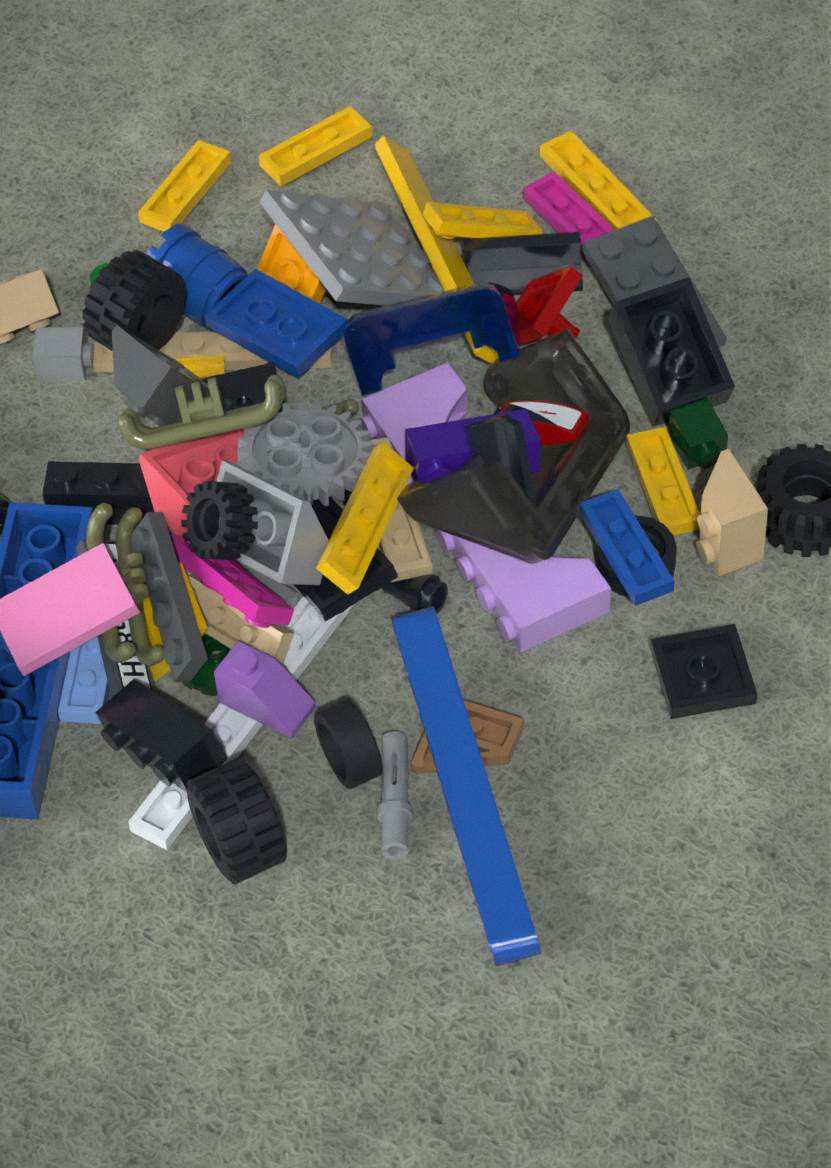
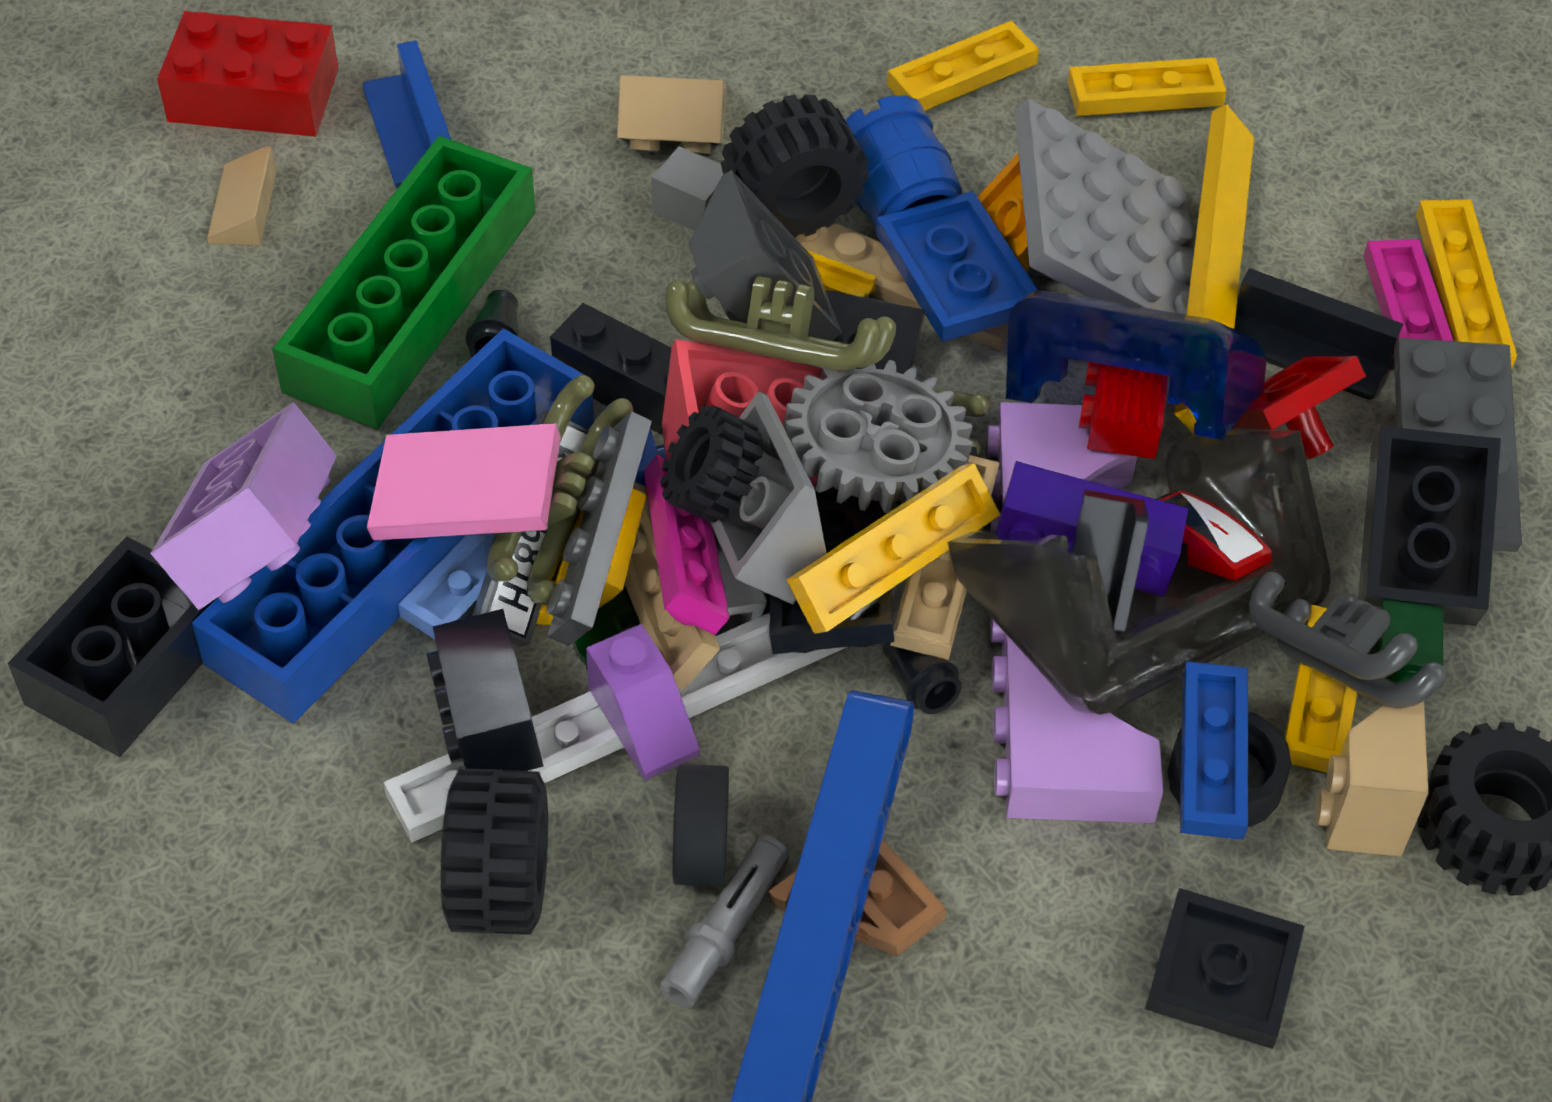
camera: 25 degrees right, 0 degrees up
(446, 366) = (1124, 410): none -> red brick
(478, 222) = (1277, 254): yellow plate -> none
(666, 446) = (1340, 644): none -> dark grey piece

